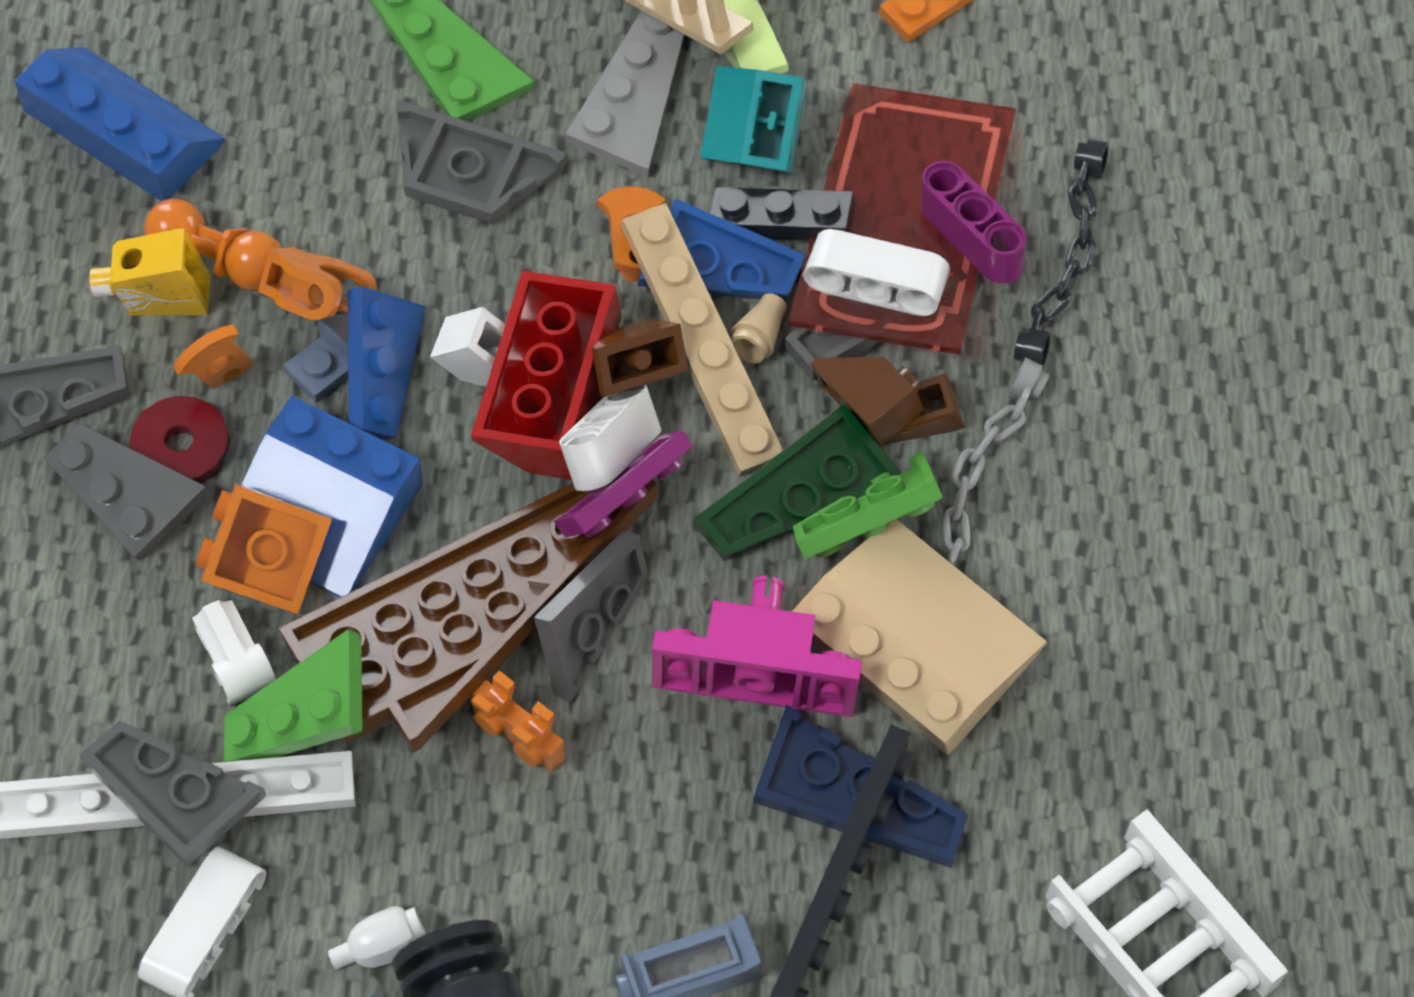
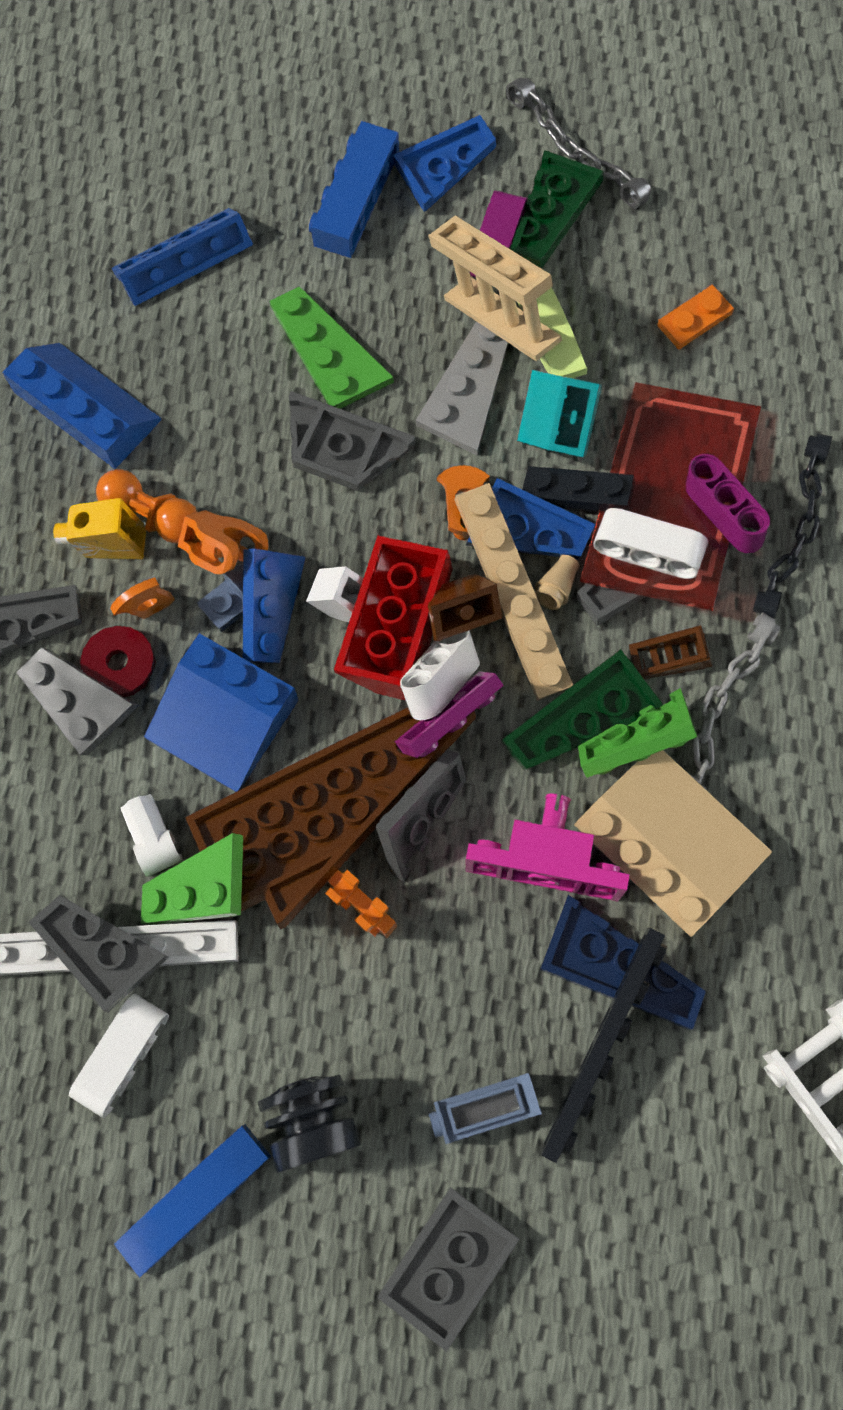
camera: 10 degrees right, 10 degrees up
(263, 547) = (174, 754): orange plate -> none
(378, 938) = (253, 1071): white plant -> none
(872, 391) = (643, 641): reddish brown slope -> none

